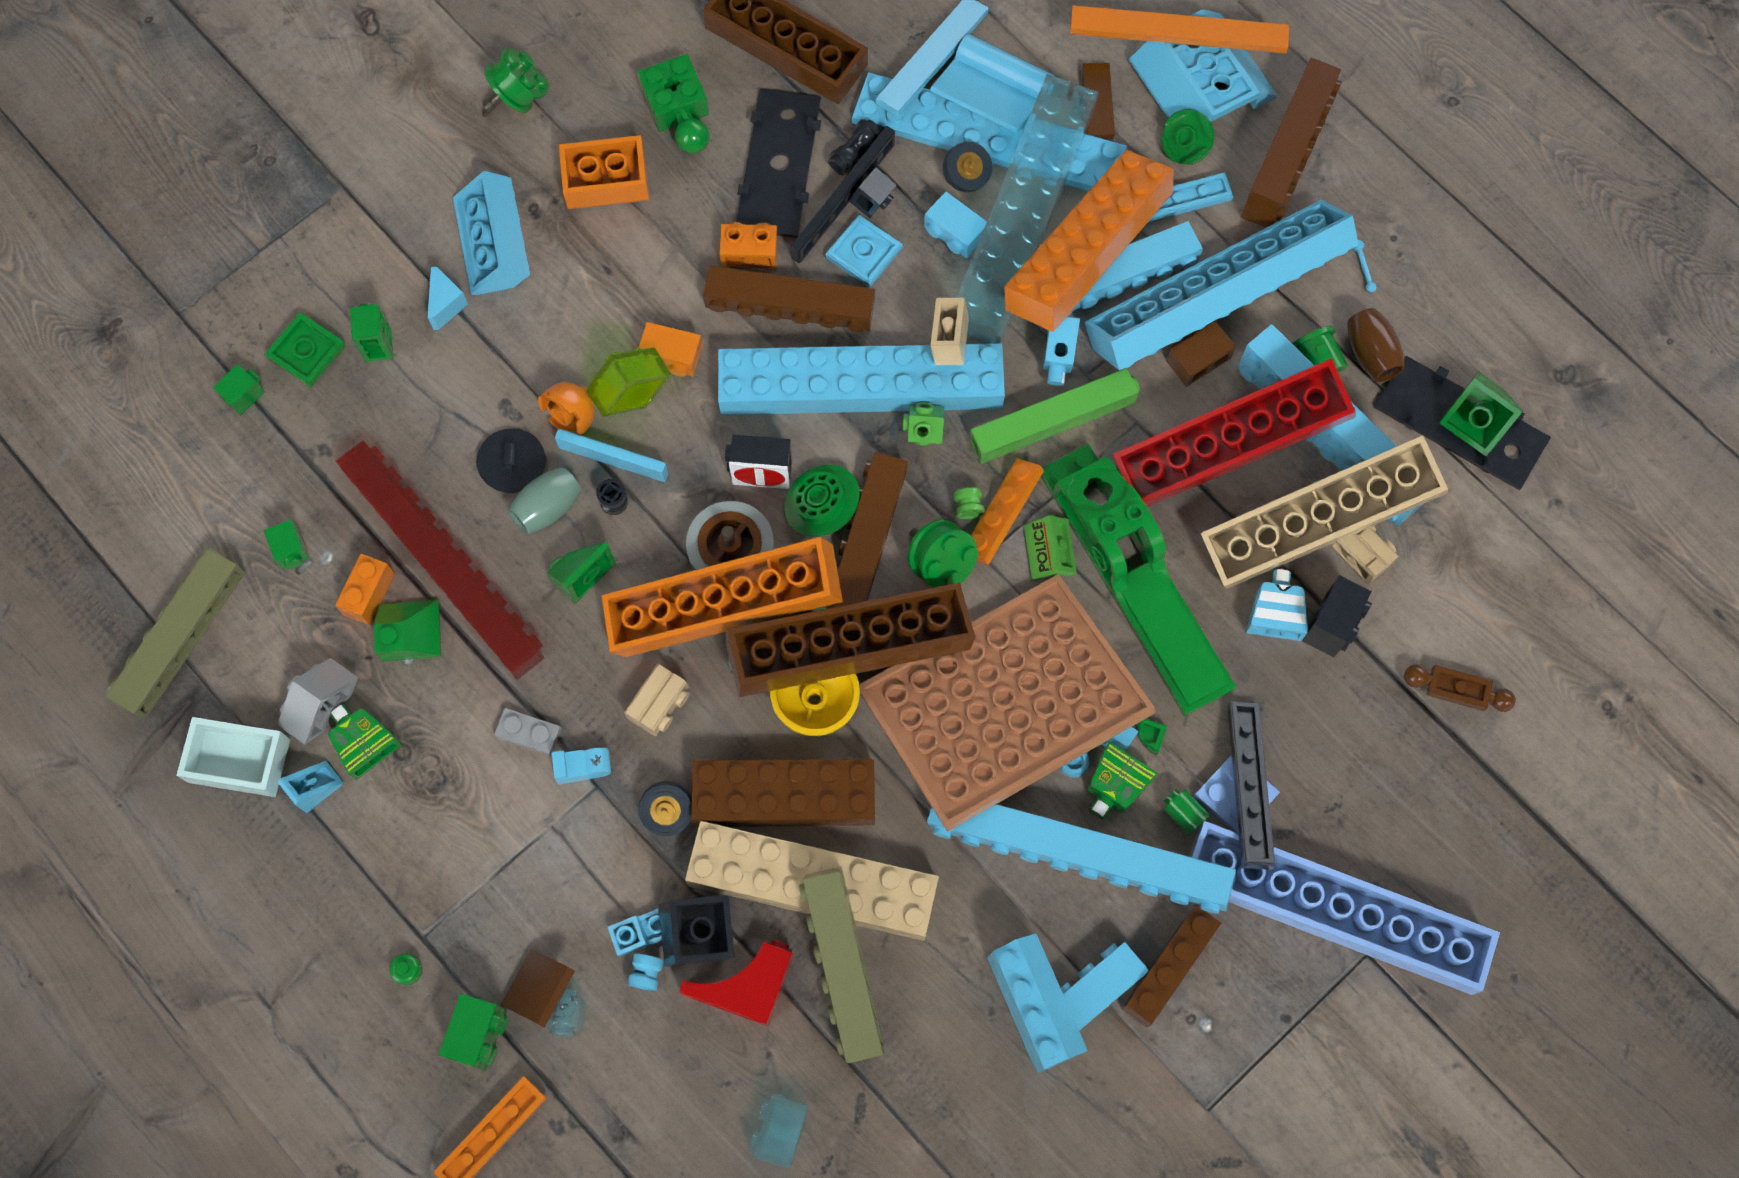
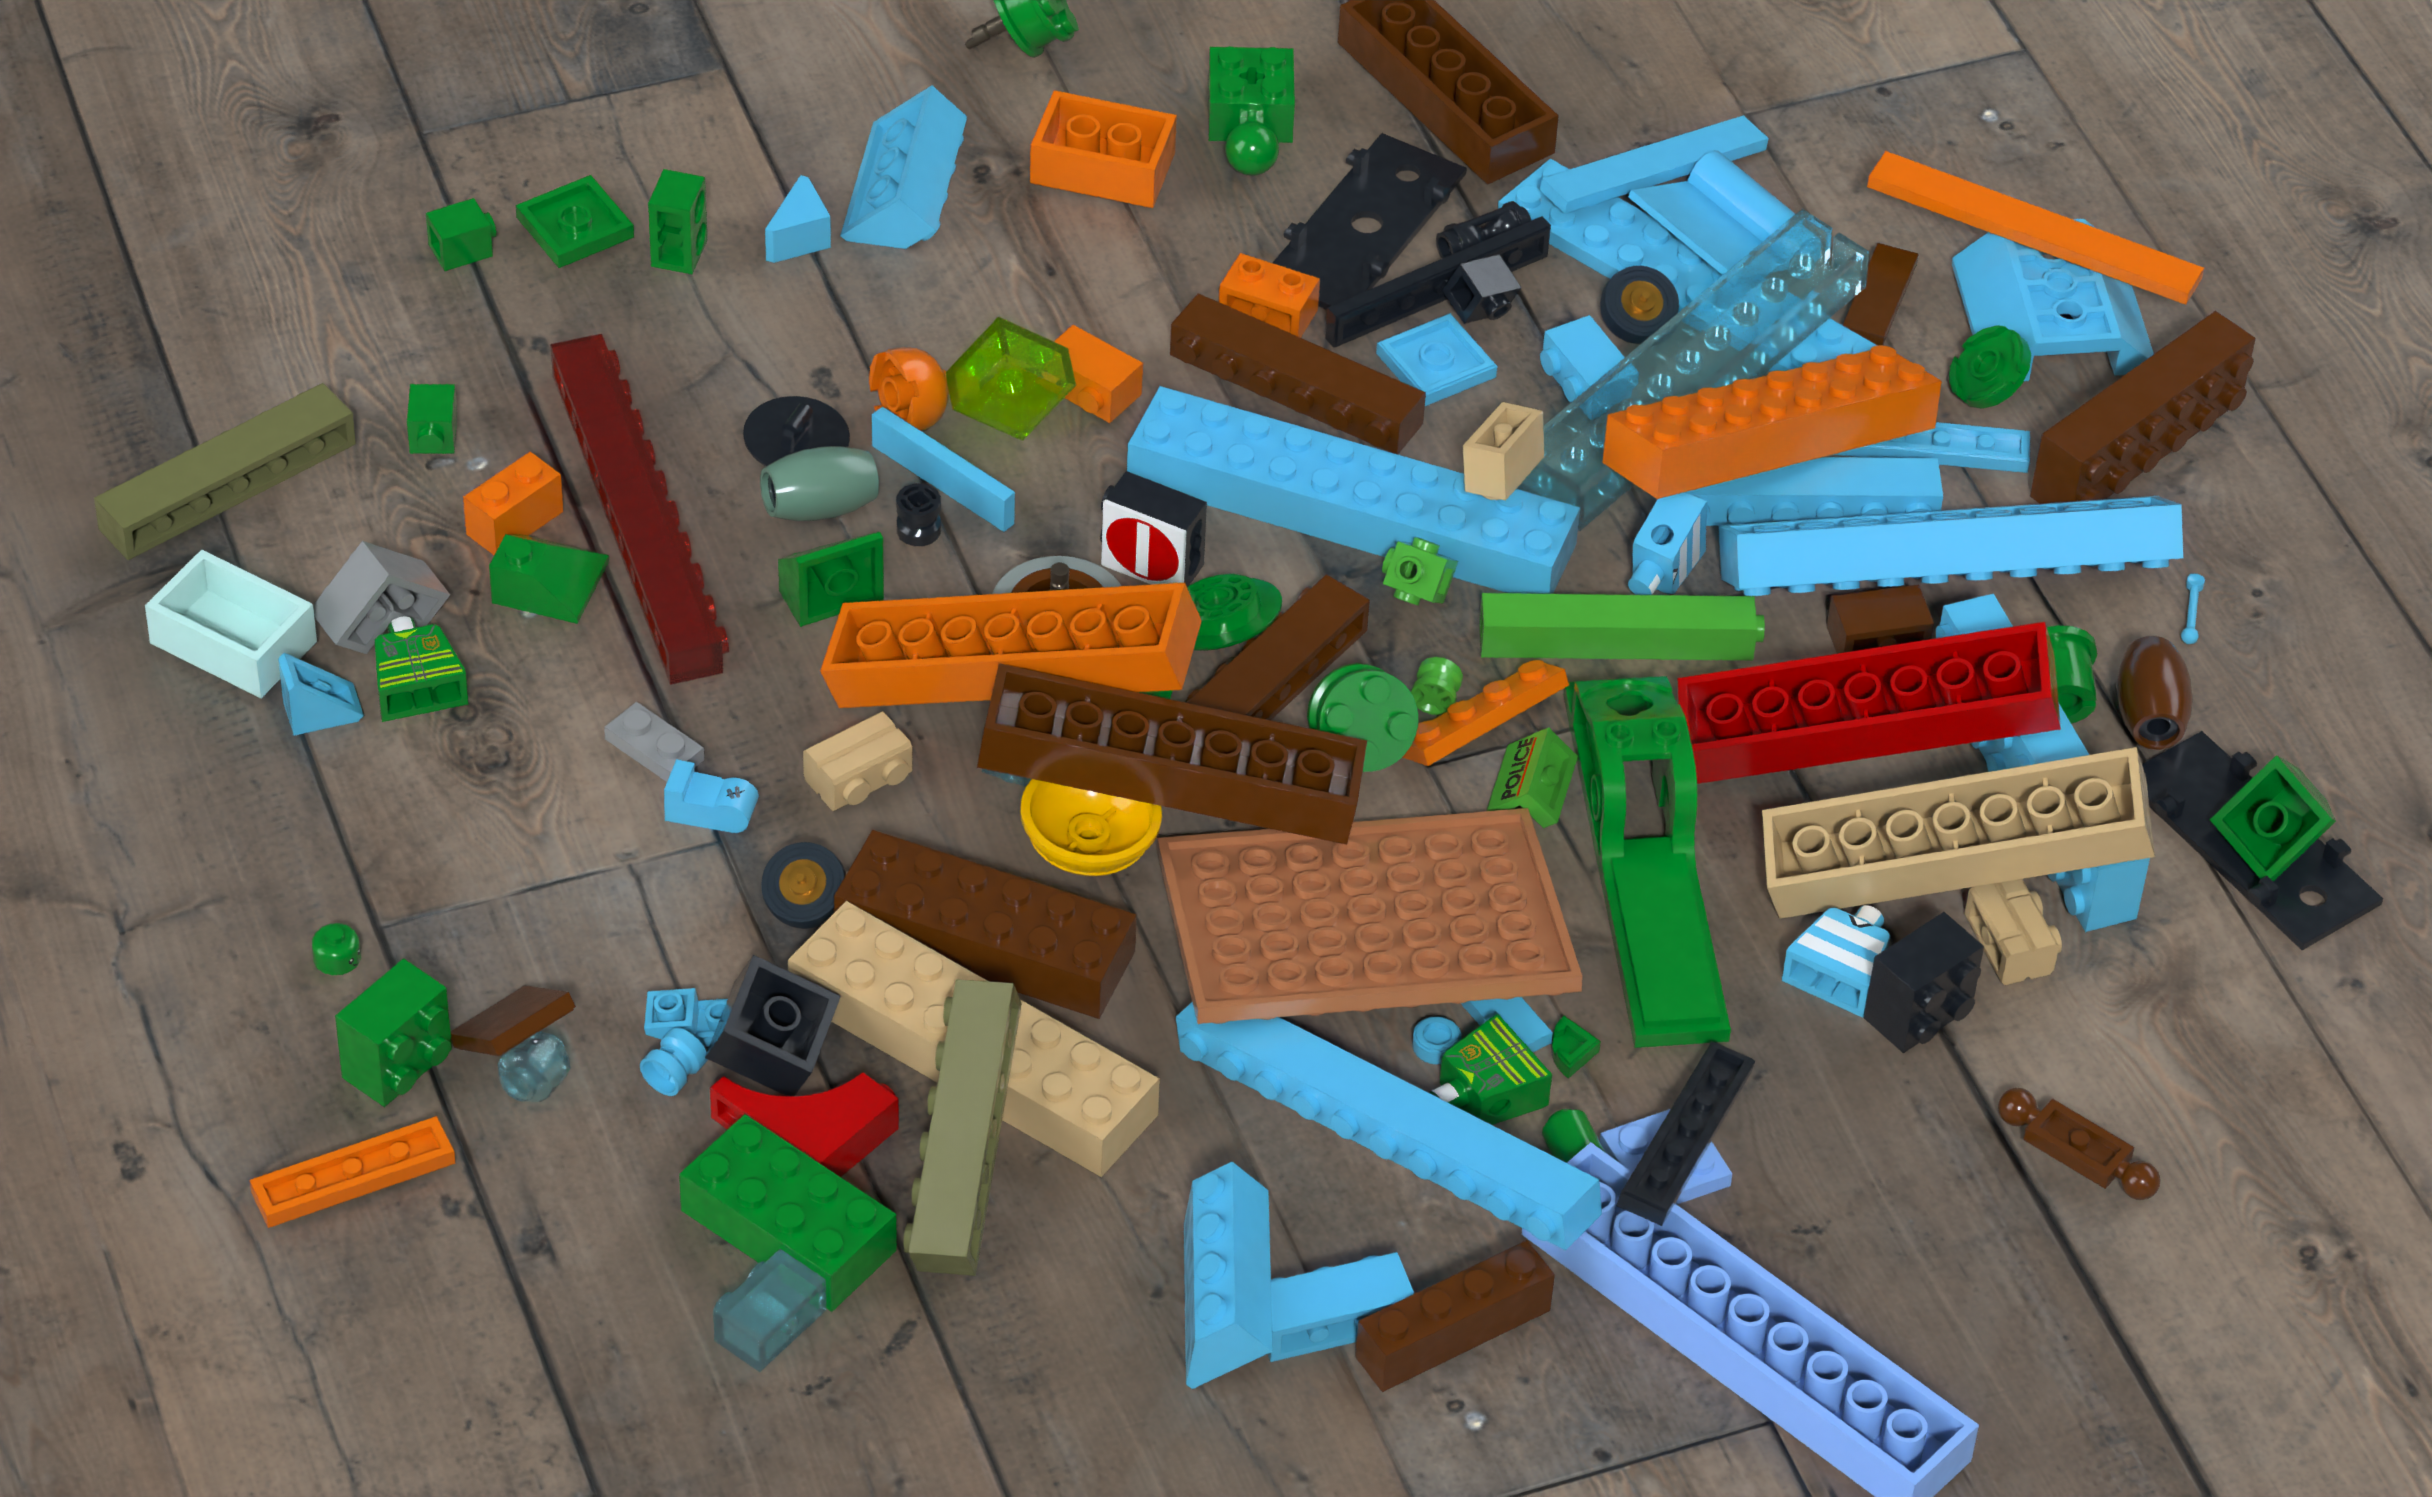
camera: 20 degrees right, 25 degrees down
(760, 1057) = (775, 1197): none -> green brick

